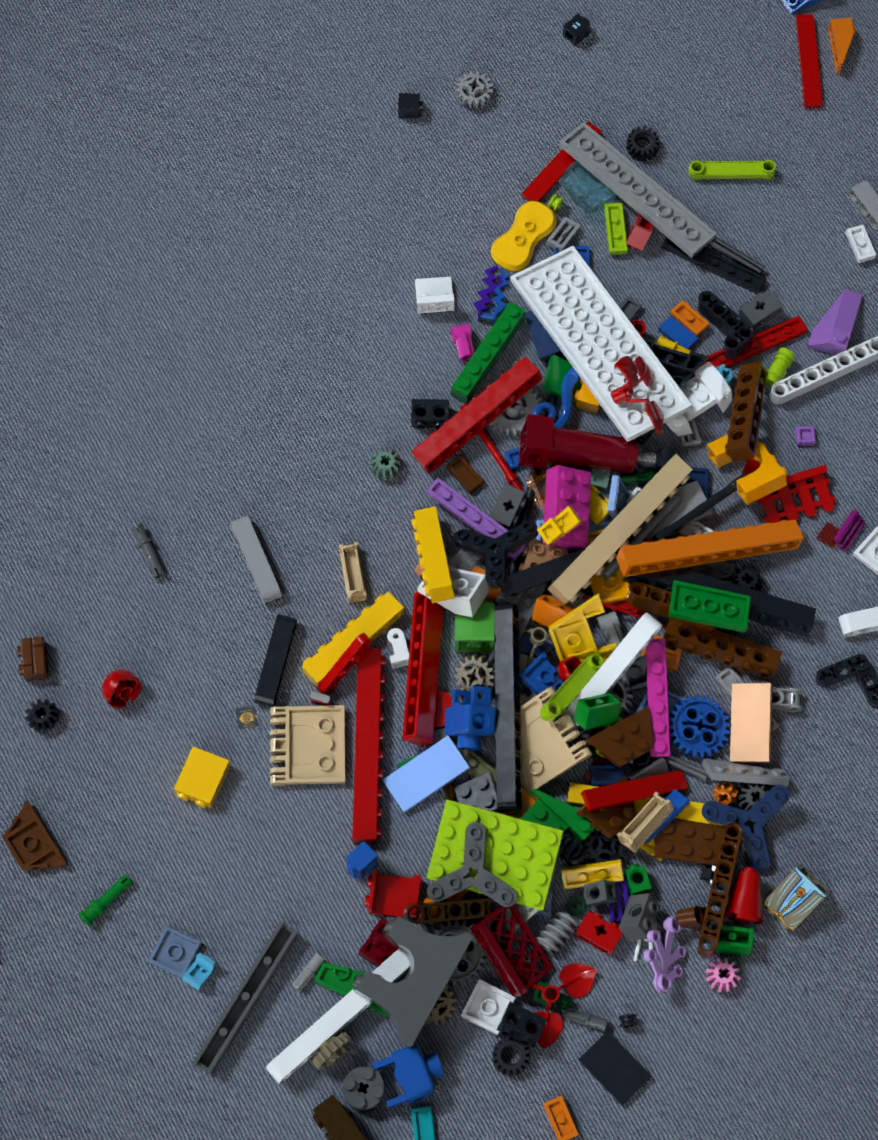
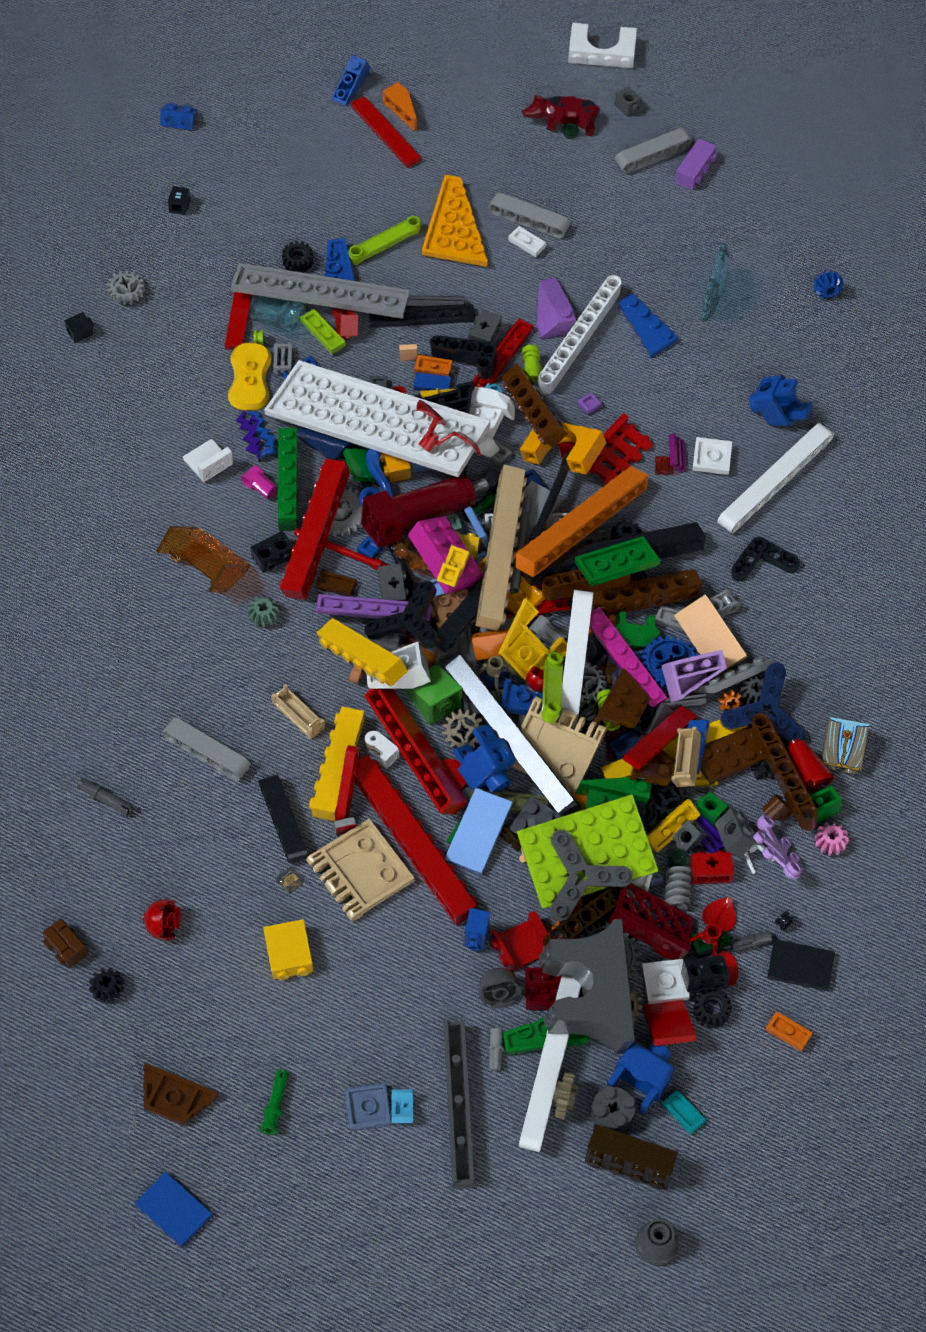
camera: 35 degrees left, 10 degrees down
(345, 921) = (499, 987): none -> dark grey cylinder
(374, 383) = (204, 554): none -> clear orange windscreen
(461, 1046) = (669, 1023): none -> red tile
(597, 711) = (587, 692): green brick -> none
(639, 697) = (608, 670): none -> clear orange hand
(673, 171) = (338, 260): none -> blue wing
(676, 292) = (408, 352): none -> light nougat tile
(685, 680) = (636, 635): none -> green piece
(706, 748) = (690, 673): none -> lavender wedge
(801, 193) = (453, 228): none -> light orange wing

